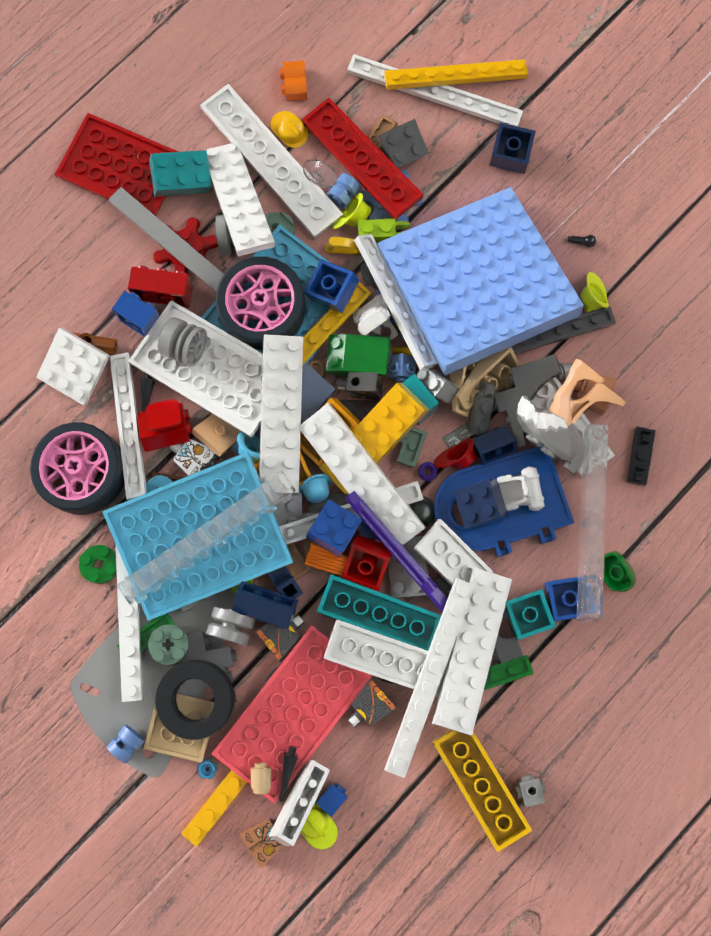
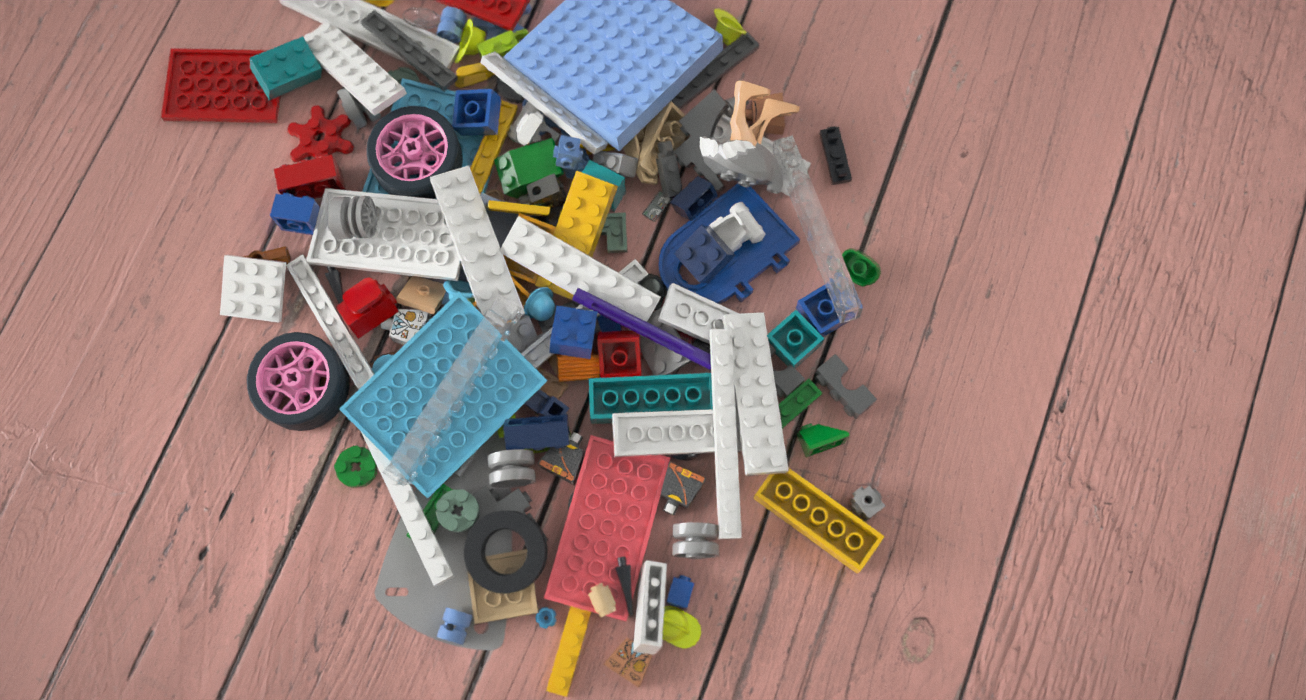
camera: 20 degrees left, 5 degrees down
(166, 238) = (297, 133): light grey tile -> none
(296, 201) = (409, 50): none -> dark grey plate
(332, 392) = (518, 208): none -> yellow tile
(363, 762) = (696, 540): none -> light grey wheel
(397, 358) = (566, 156): none -> medium blue brick
(427, 465) = (641, 244): dark purple plate -> none
(458, 456) = (664, 223): red piece -> none
(513, 714) = (820, 438): none -> green slope
(559, 694) = (854, 401): none -> dark grey arch

